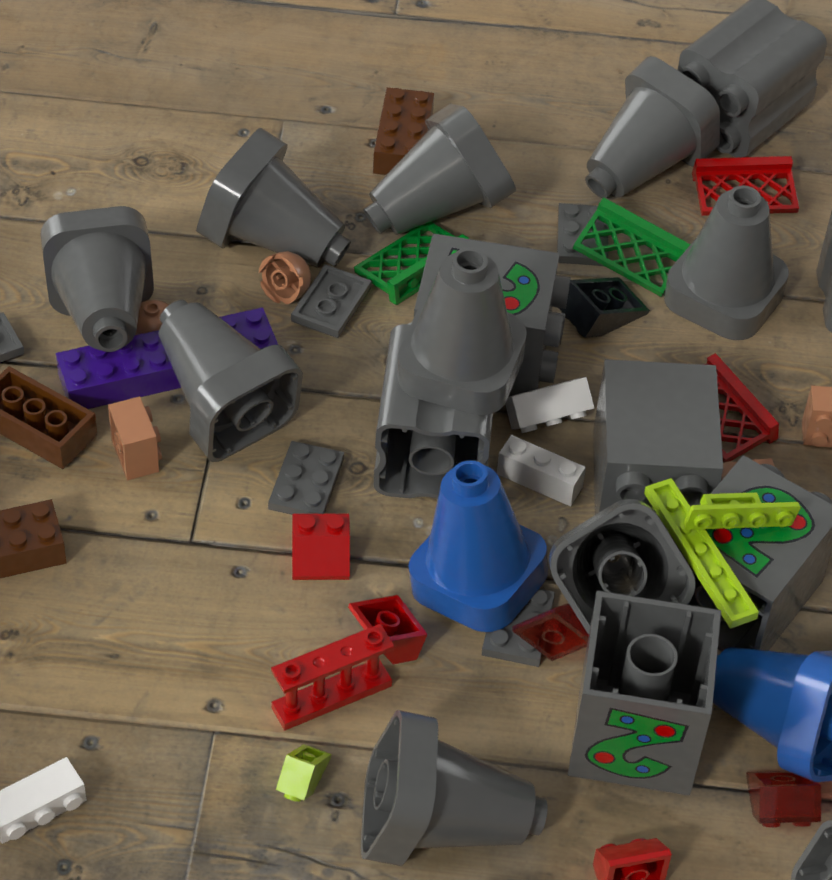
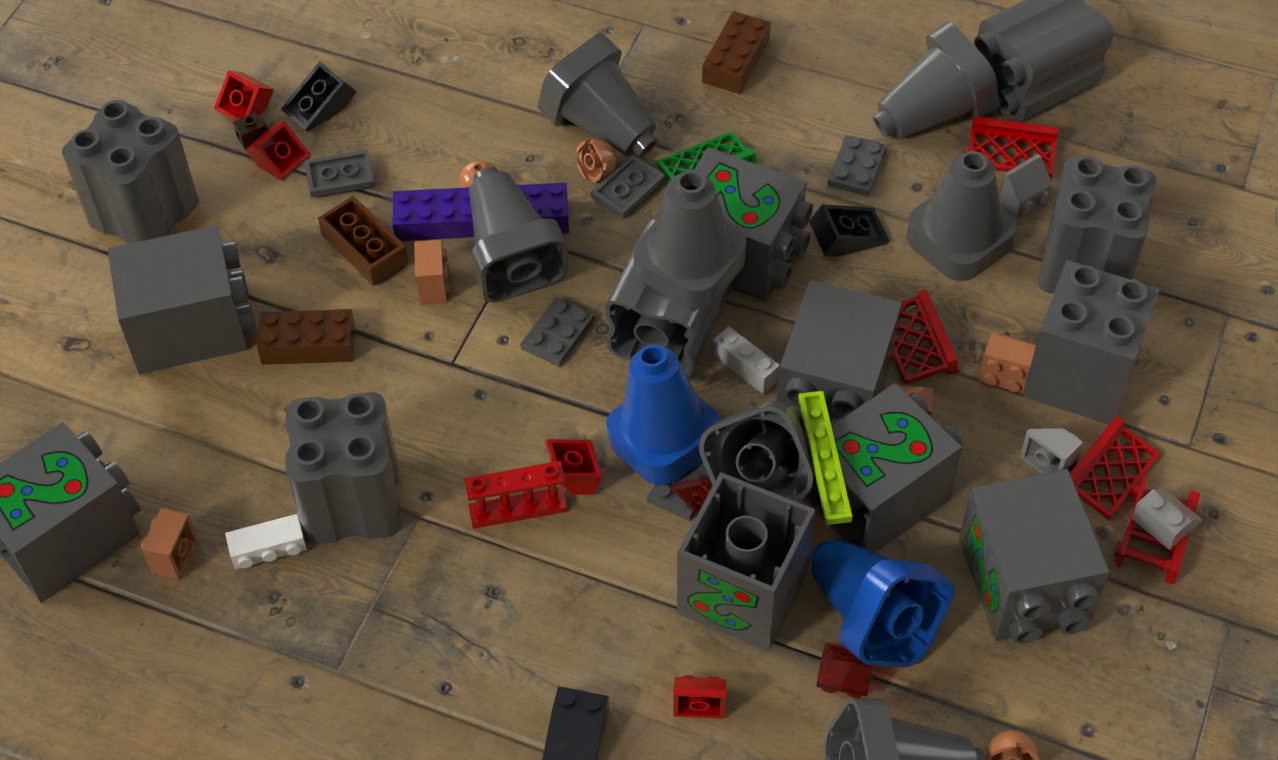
camera: 20 degrees right, 5 degrees up
(99, 271) = (442, 132): dark grey cone -> none
(118, 685) = (343, 467): none -> dark grey brick
(302, 772) = (472, 564): lime slope -> none
(320, 547) = (548, 387): red slope -> none
(439, 796) = (567, 609): dark grey cone -> none
(440, 175) = (743, 97): dark grey cone -> none
(549, 404) = (769, 306): white brick -> none
(640, 233) = (899, 168): green fence -> none
(739, 511) = (866, 429): lime bracket -> none
(786, 221) = (1025, 186): none -> light grey slope

